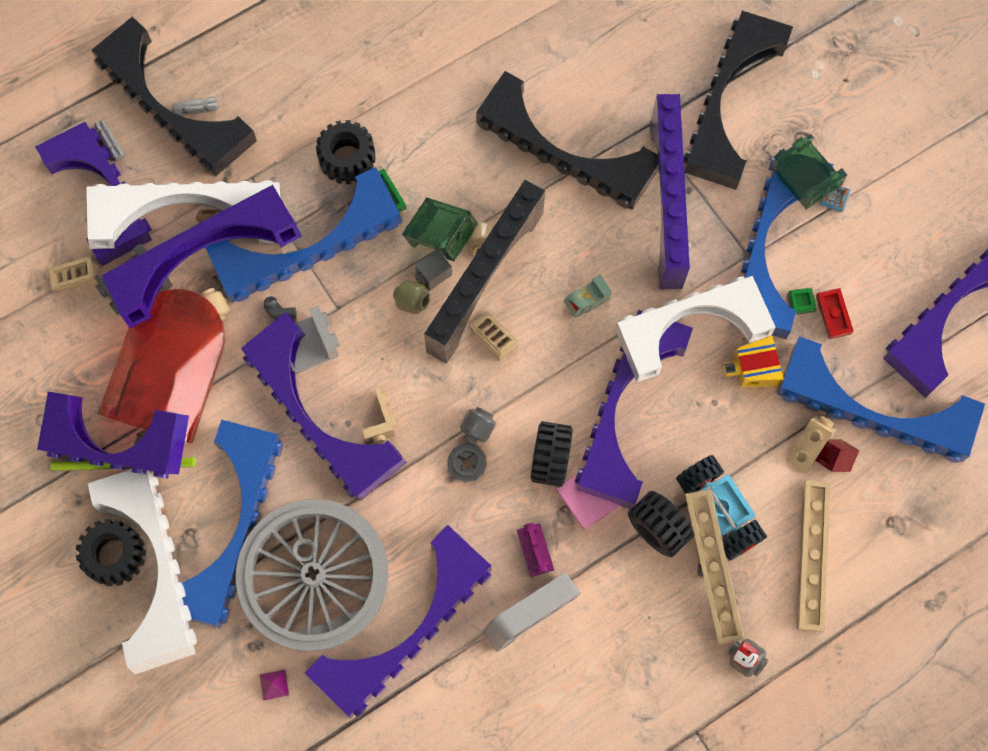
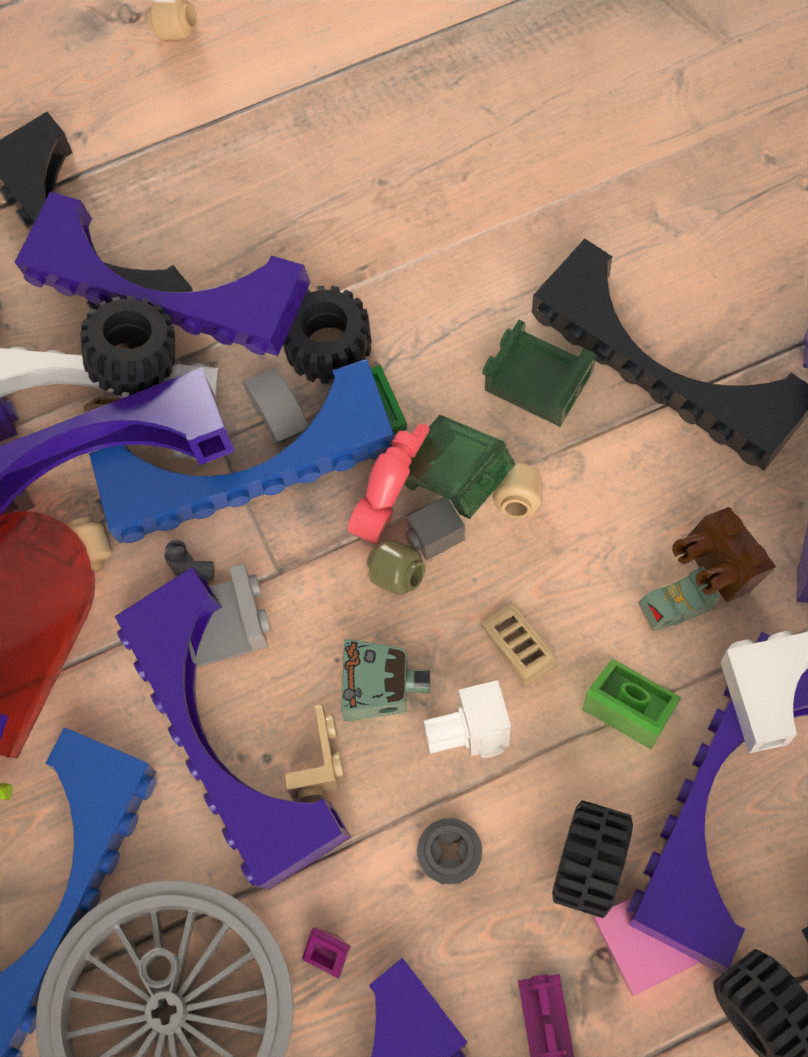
camera: 15 degrees right, 5 degrees down
(195, 106) = (122, 246): light grey axle -> none
(221, 159) = (127, 323): none -> black tyre
(294, 144) = (245, 312): none -> dark purple arch
(320, 201) = (276, 405): none -> light grey slope
(398, 246) = (385, 485): none -> coral piece
(401, 529) = (326, 951): none -> magenta slope
(410, 367) = (378, 680): none -> sand green torso
(476, 385) = (479, 723): none -> white brick
(477, 425) = (474, 790): dark grey head -> none
(485, 163) = (537, 374): none -> clear green panel
(517, 219) = (449, 616): black arch -> none
(564, 362) = (630, 703): none -> bright green slope
(614, 265) = (729, 554): none -> reddish brown brick

